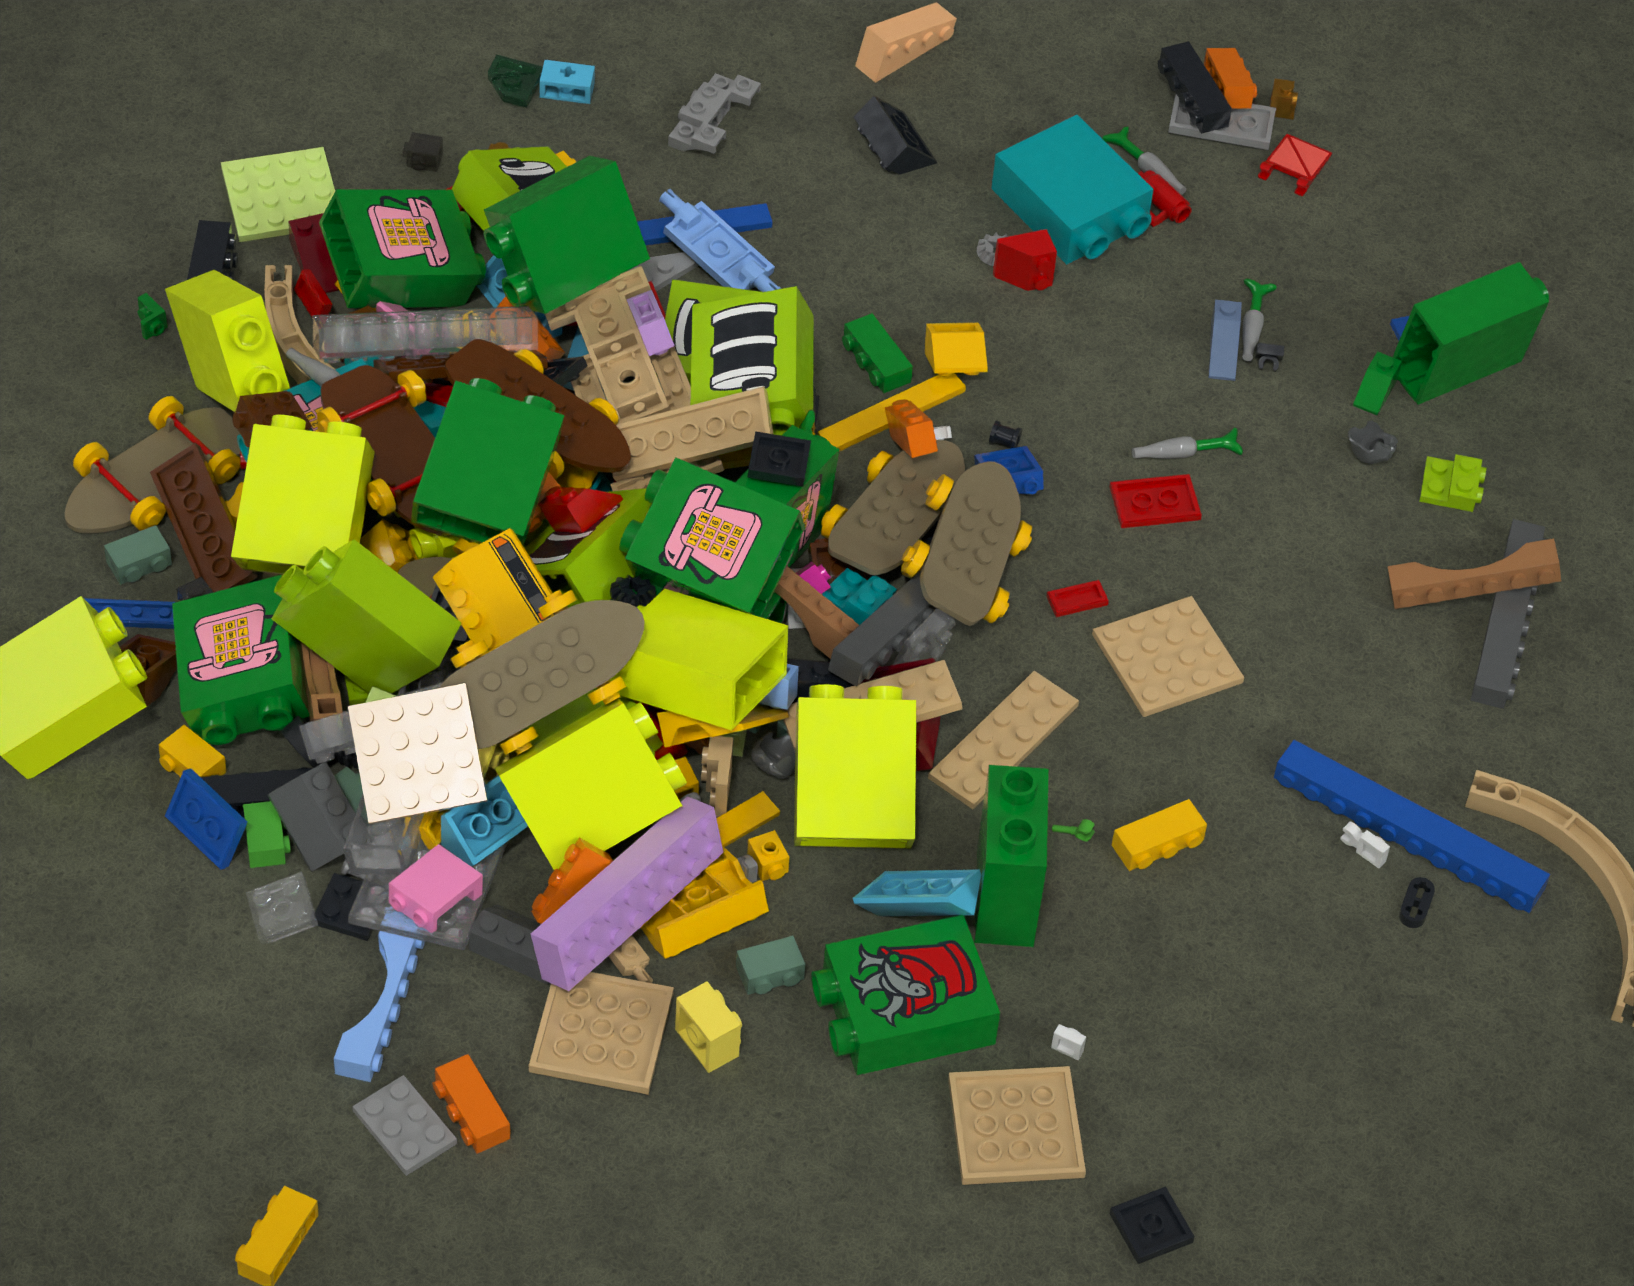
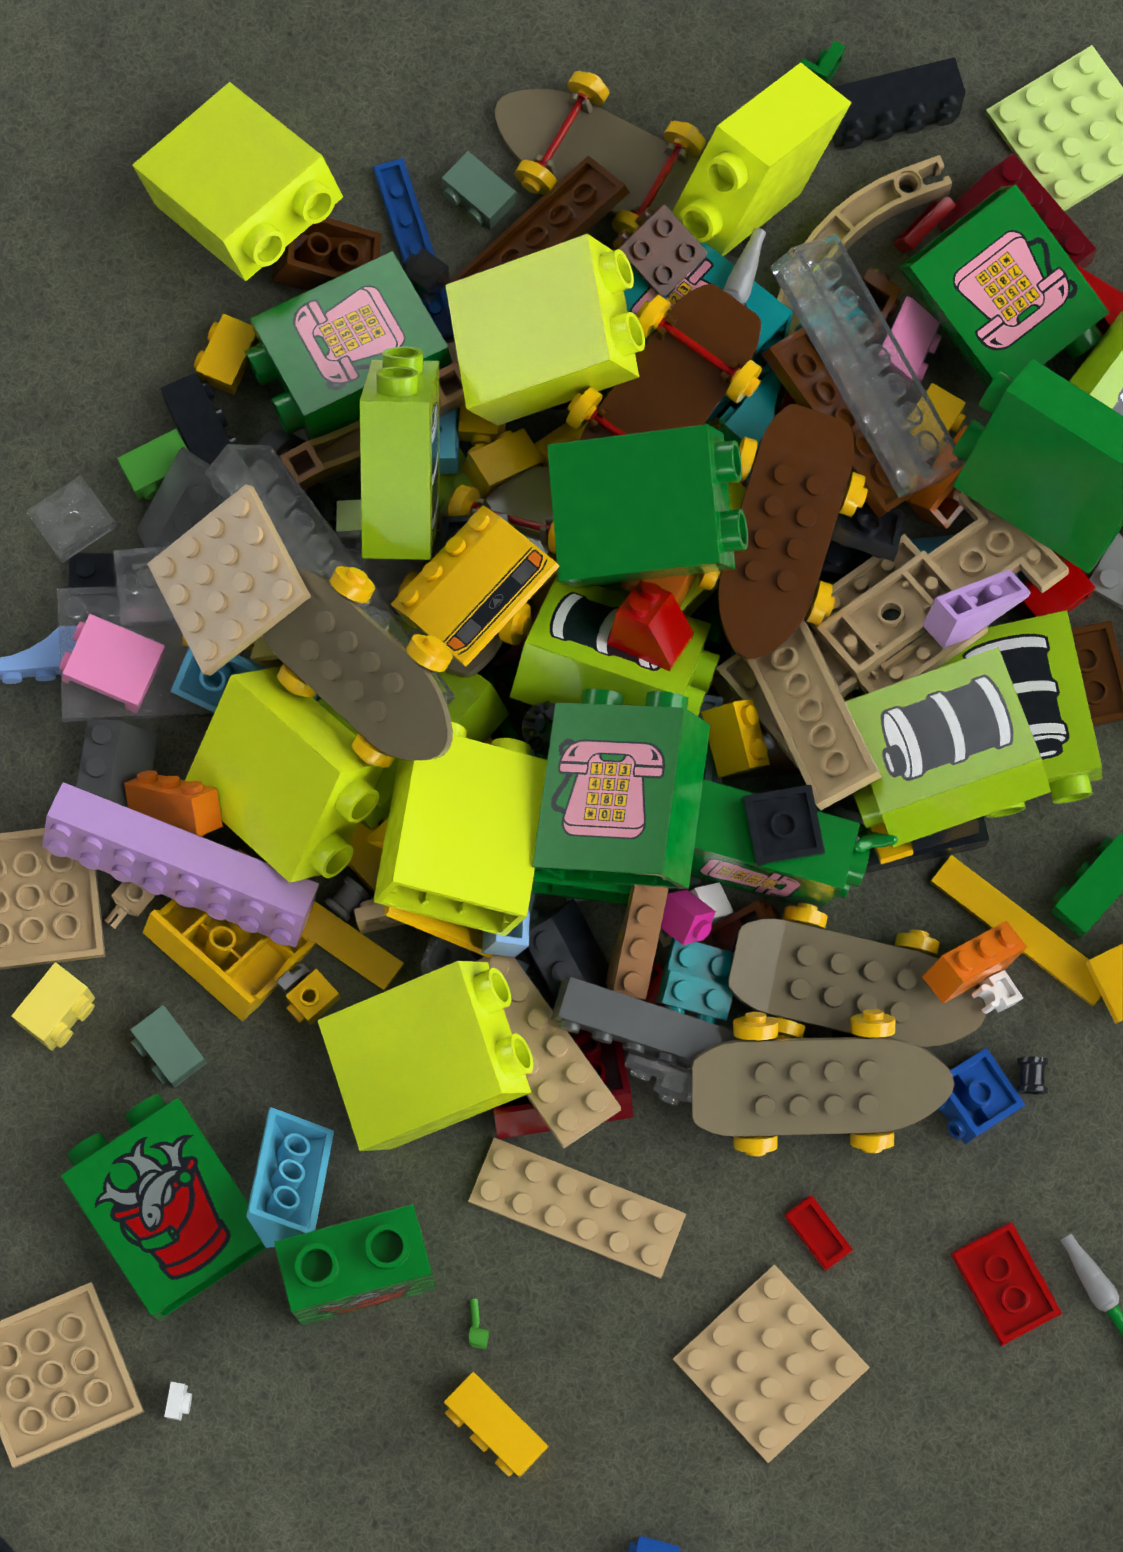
camera: 75 degrees right, 25 degrees up
(206, 819) = (145, 398): blue tile -> none

